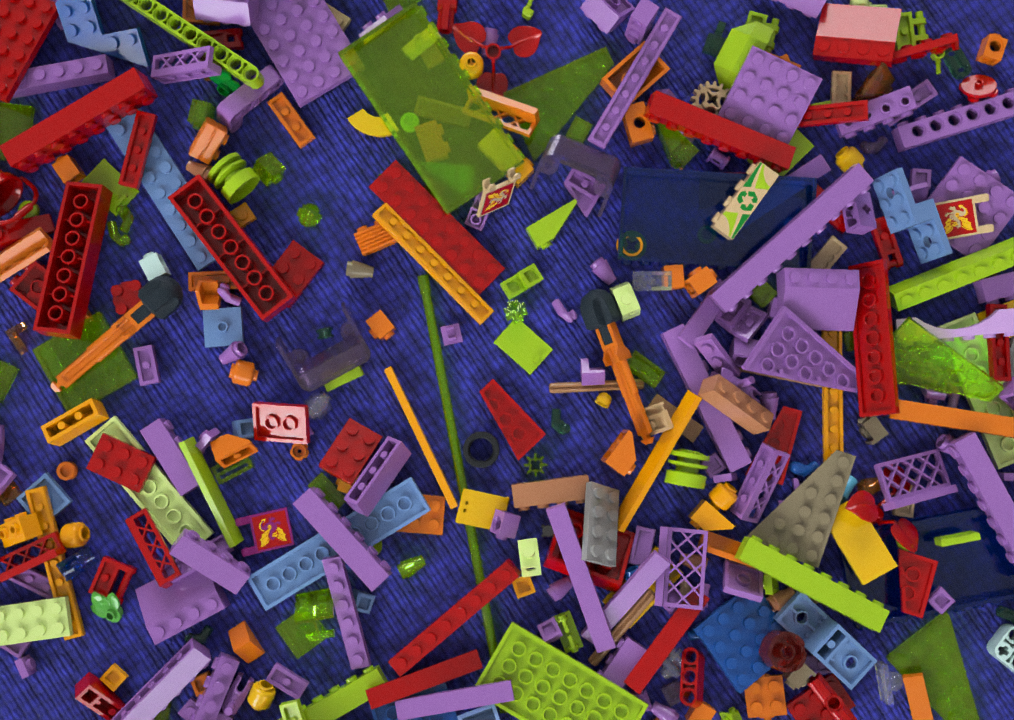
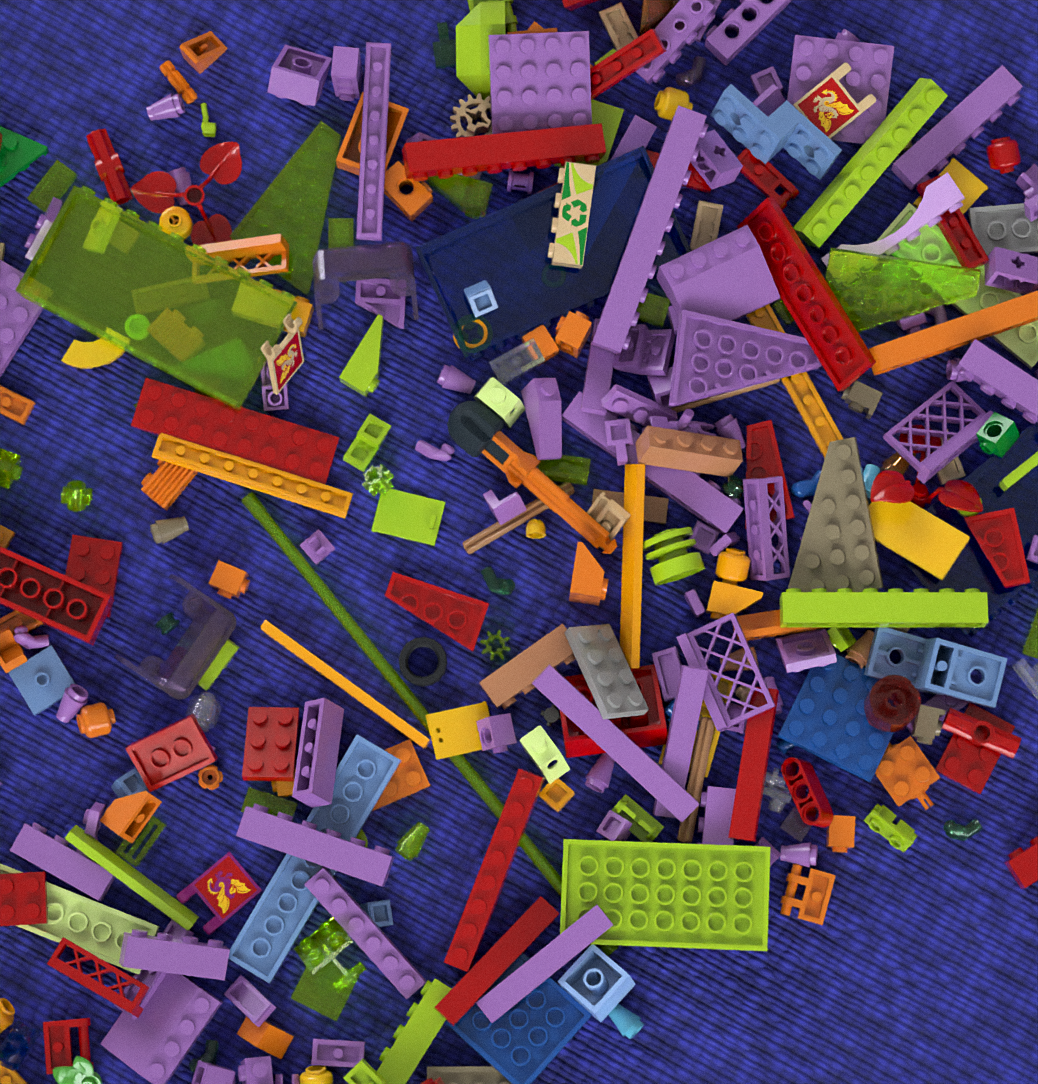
camera: 25 degrees left, 5 degrees down
(246, 615) = (250, 1000): none -> medium lavender tile
(650, 224) = (480, 298): none -> medium blue slope
(651, 325) = (544, 417): none -> medium lavender slope
(684, 504) = (694, 603): none -> medium lavender tile
(694, 369) = (619, 436): none -> medium lavender plate
(752, 443) = (733, 487): none -> clear green bush
(955, 498) = (997, 435): none -> green brick

